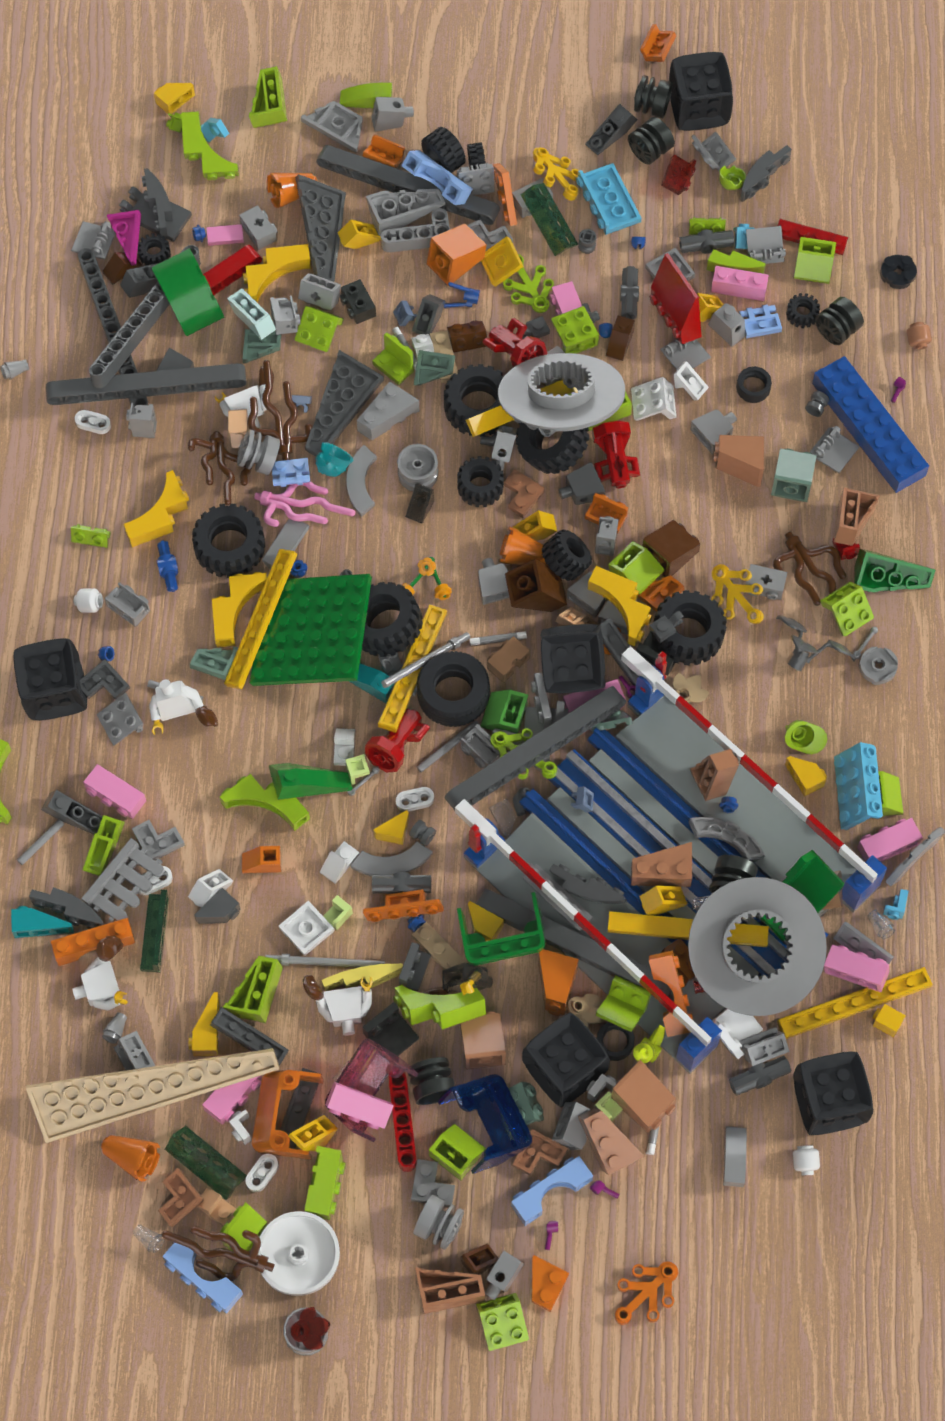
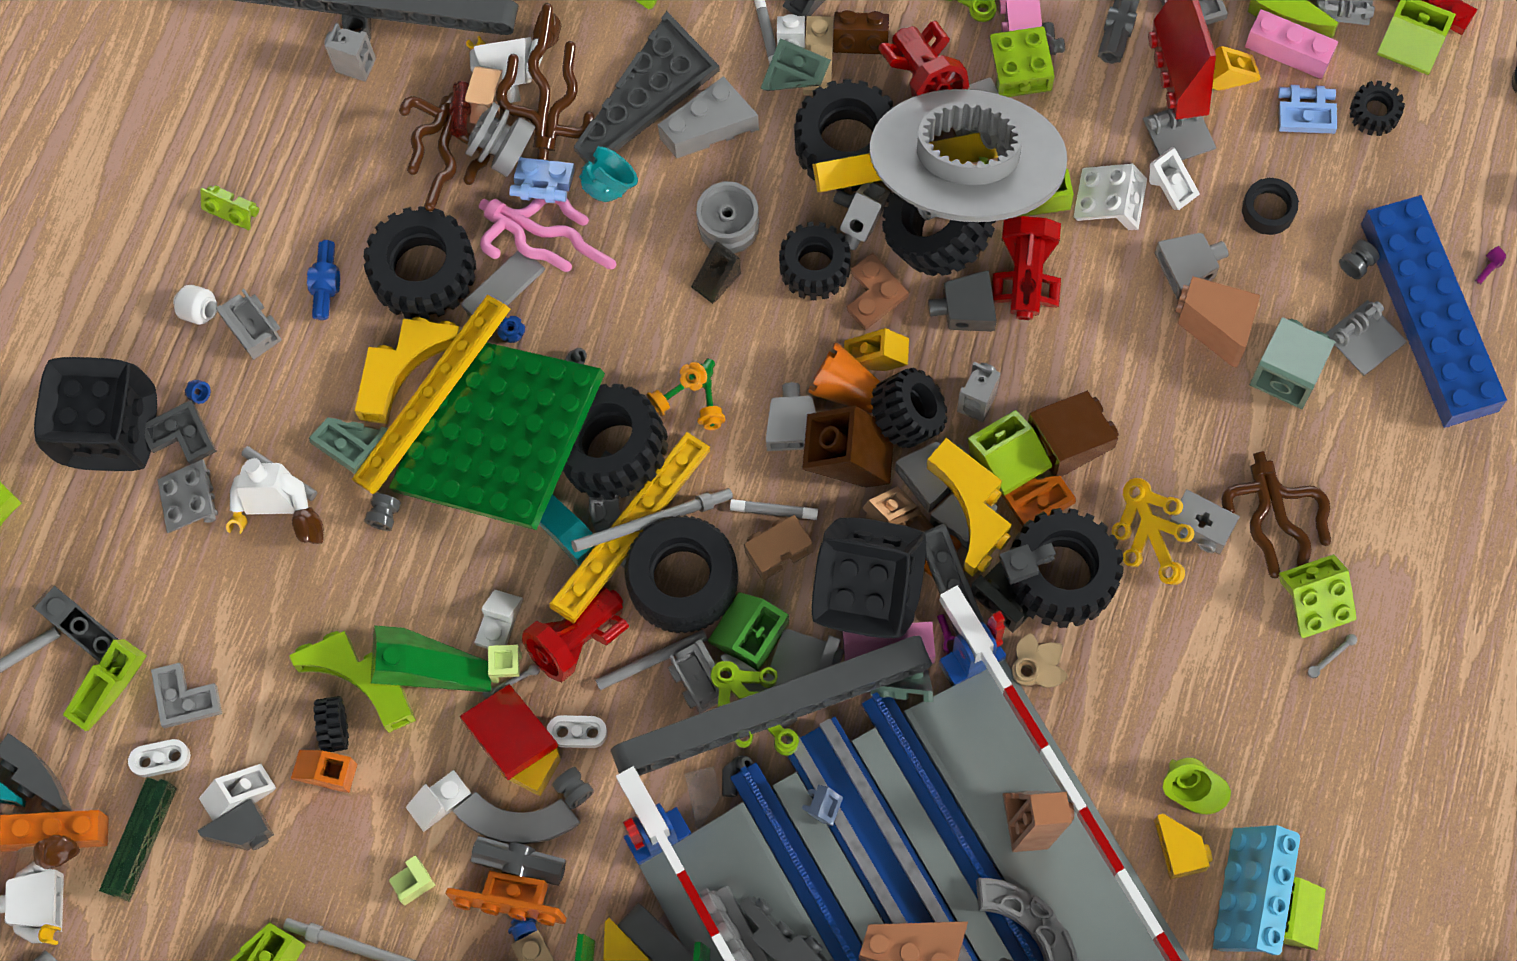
camera: 20 degrees right, 5 degrees up
(93, 422) = (284, 39): white plate -> none
(113, 876) = (104, 735): light grey fence -> none
(114, 792) = (143, 607): bright pink brick -> none
(159, 518) = (332, 205): yellow arch -> none
(225, 439) = (459, 110): none -> clear red pin
(250, 698) = (382, 512): none -> dark grey wheel
(259, 830) = (331, 724): none -> black tyre
(302, 400) = (590, 74): sand blue tile -> none
(306, 928) = (358, 892): white plate -> none
(356, 480) = (635, 213): light grey tile -> none
(373, 808) = (508, 731): none -> red tile
(395, 359) = (742, 45): lime bracket -> none
(536, 328) = (965, 44): dark grey plate -> none
(541, 700) = (806, 629): light grey plate -> none
(603, 506) = (989, 347): orange bracket -> none
(605, 330) = (1069, 70): blue hinge -> none
(620, 337) = (1087, 87): reddish brown slope -> none
(728, 324) = (1254, 99): light grey torso -> none
(728, 804) = (1046, 868): blue plate -> none
(801, 650) = (1230, 652): dark grey plant -> none
(839, 321) = (1428, 137): pearl dark grey wheel -> none
(847, 551) = (1343, 495): red bracket -> none
(853, 514) = (1366, 449): nougat wedge -> none
(879, 655) = (1334, 713): light grey plate -> none
(884, 573) = (1390, 552): green wedge -> none

